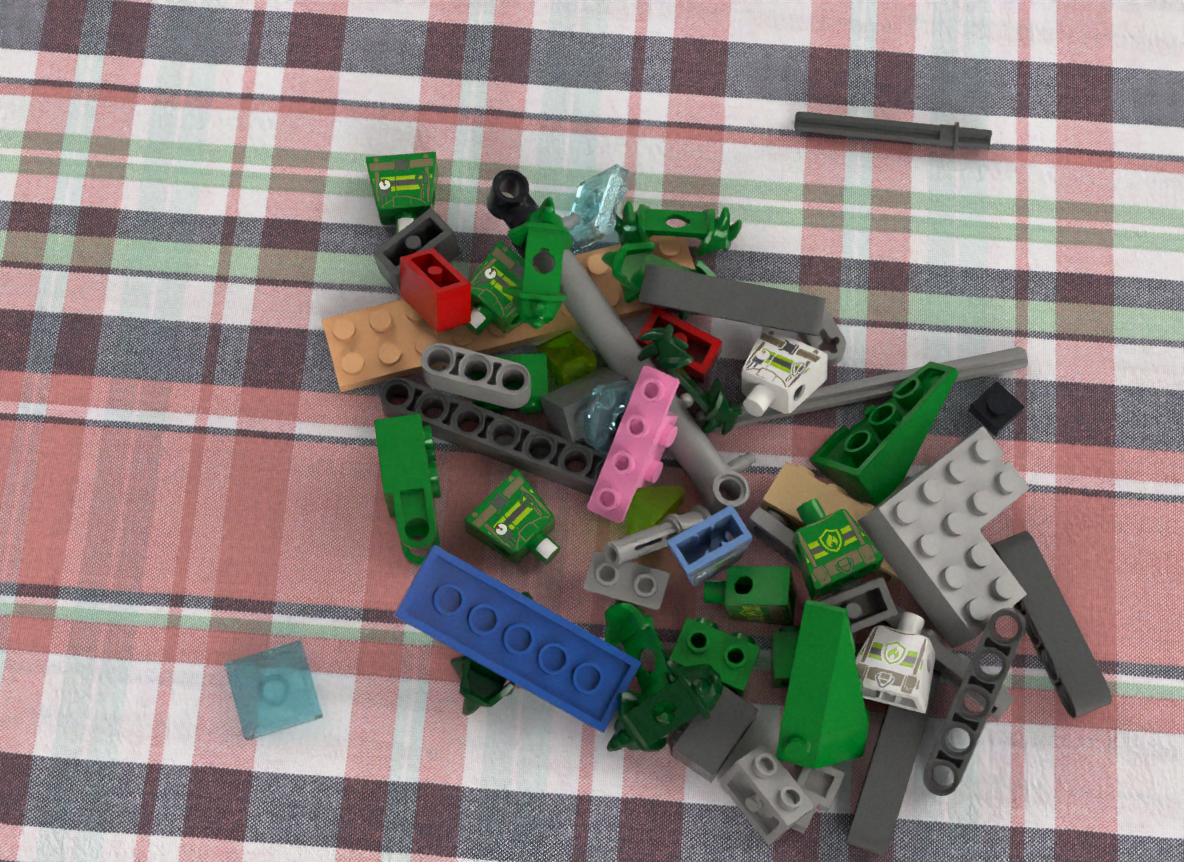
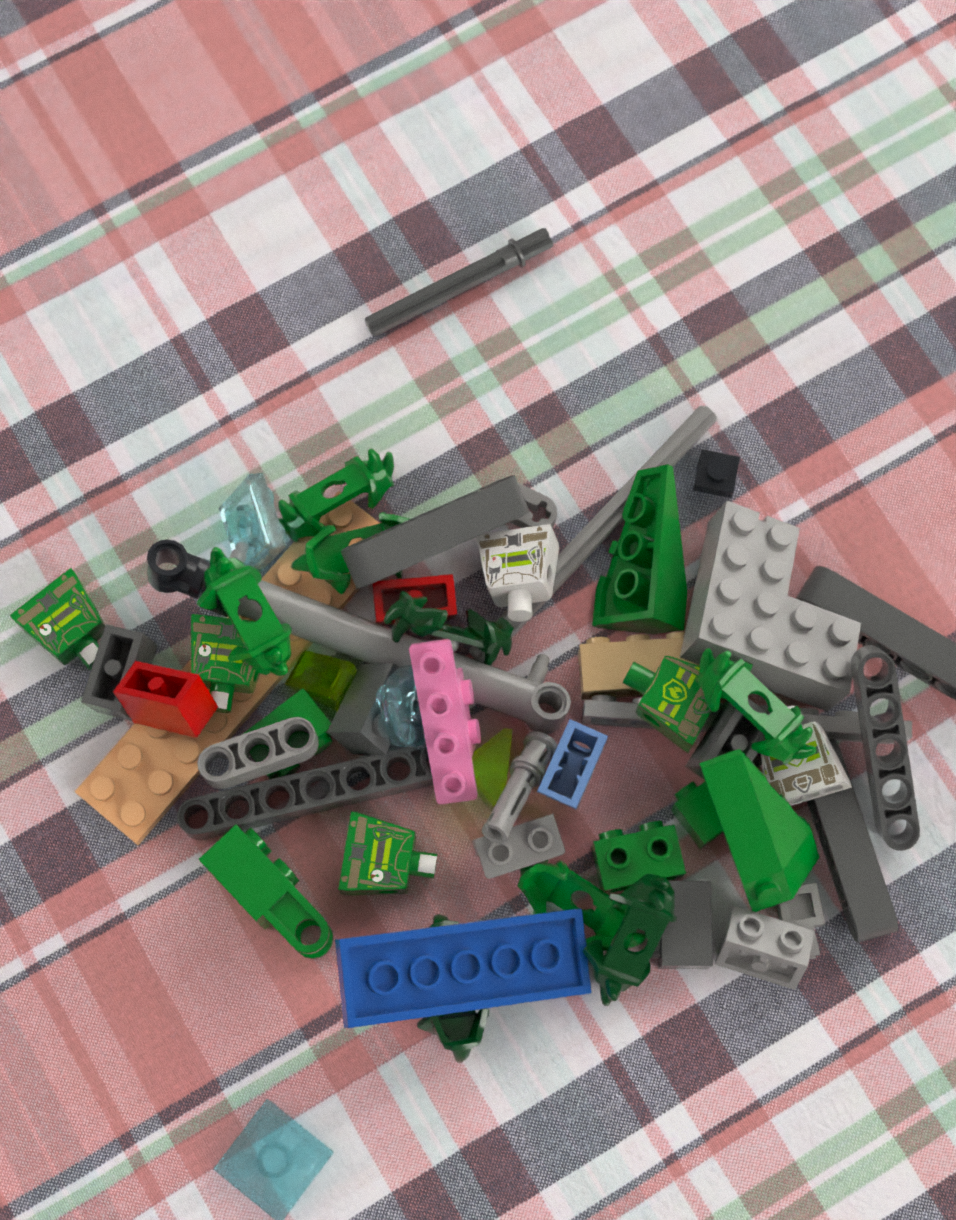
camera: 35 degrees left, 5 degrees up
(755, 594) = (651, 774): green torso -> none
(894, 621) = (734, 682): none -> green piece

